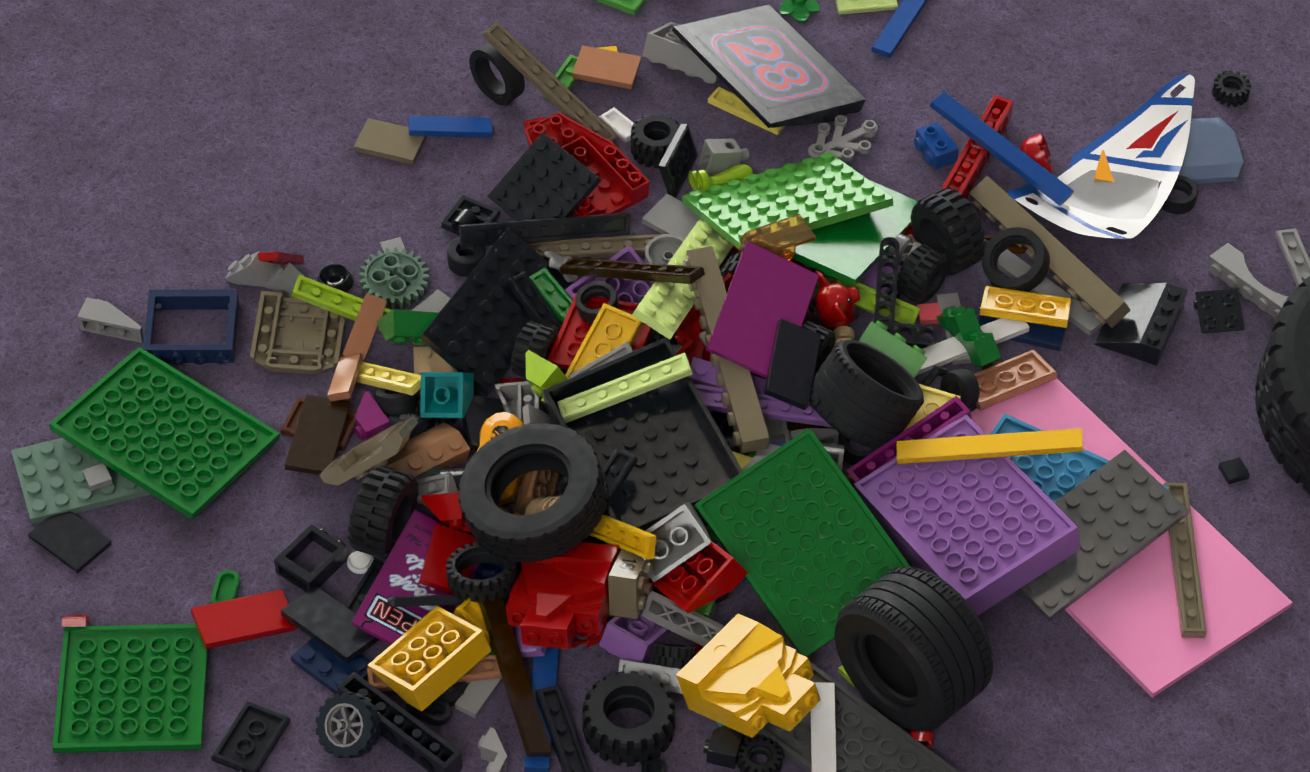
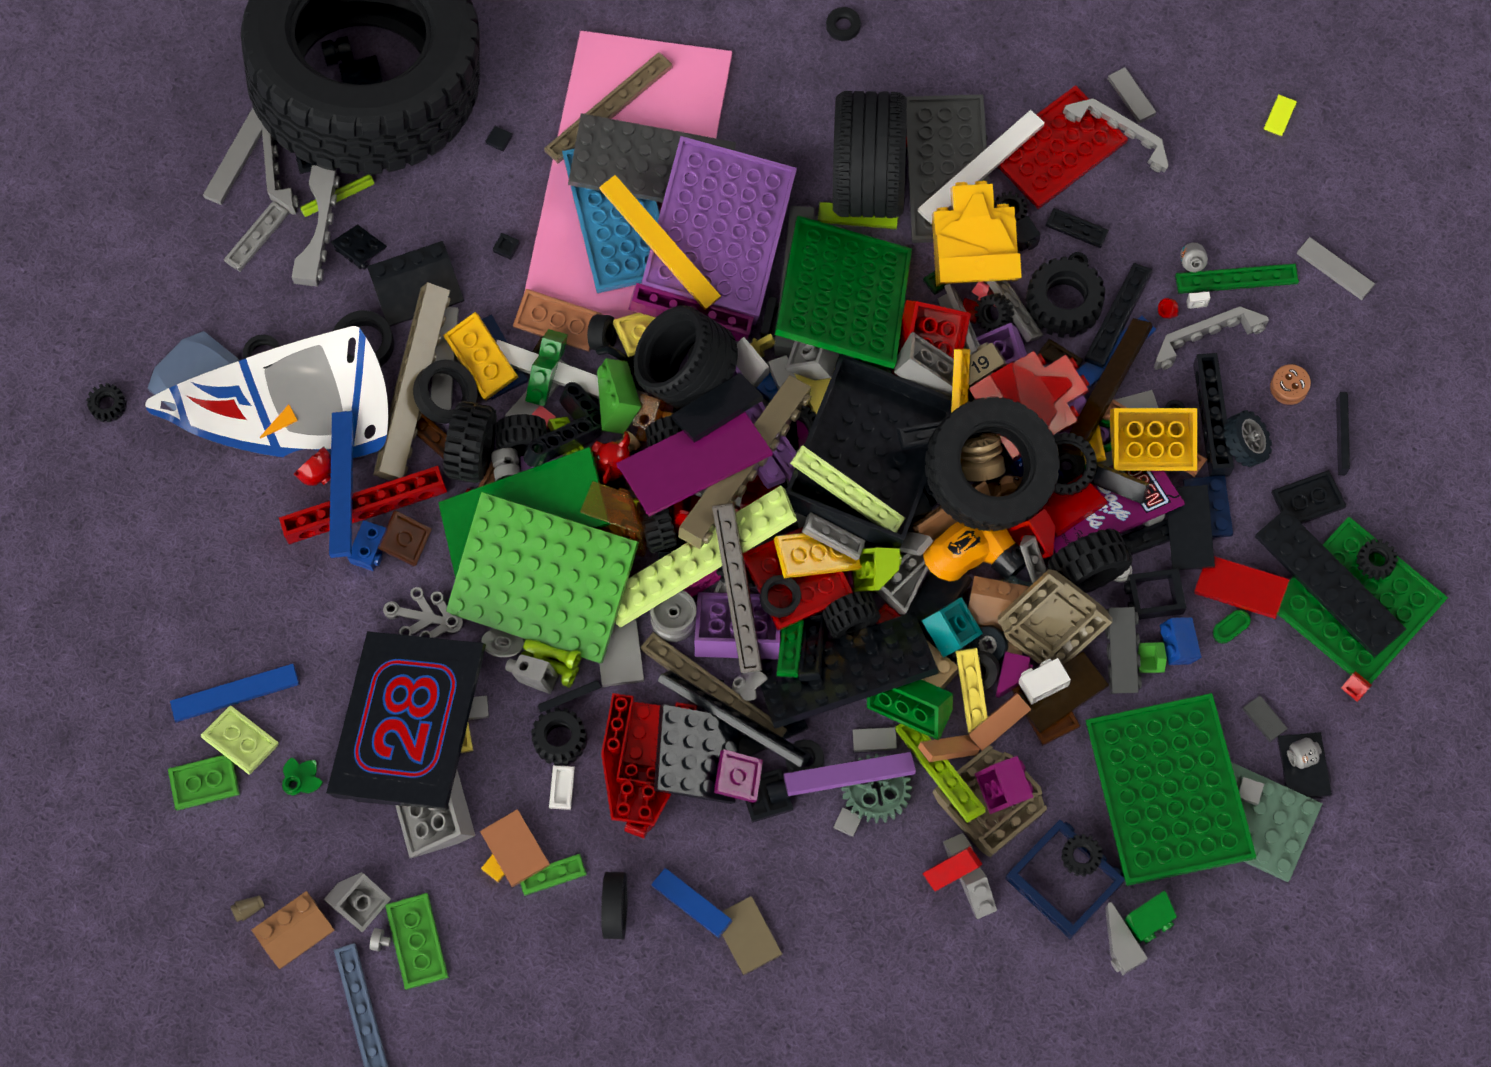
camera: 130 degrees left, 20 degrees up
(75, 531) = (1304, 753): none -> light grey head
(100, 344) = (1150, 918): none -> green slope
(133, 546) = (1265, 718): none -> dark grey tile
(137, 709) = (1368, 567): none -> black tyre
(169, 674) = (1330, 583): none -> black plate
(186, 324) = (1081, 868): none -> black tyre
(257, 538) = (1180, 641): none -> blue brick
(267, 512) = (1152, 657): none -> bright green panel
(293, 319) = (1004, 784): none -> magenta brick
(299, 493) = (1122, 651): none -> dark grey wedge
(336, 276) = (919, 830): black hat -> none
(336, 415) = (1044, 680): none -> white brick
(421, 259) = (849, 773): none -> medium lavender tile
(500, 198) = (738, 776): none -> plate
(544, 80) = (595, 845): dark tan tile -> none
(580, 679) = (1052, 352): none -> dark brown tile
(736, 122) = (479, 708): none -> light grey tile
(768, 152) = (502, 643): none -> light grey dish
(917, 166) = (404, 538): none -> reddish brown tile
(1116, 398) = (506, 246): none -> black plate
(1117, 274) = (372, 319): none -> black tyre

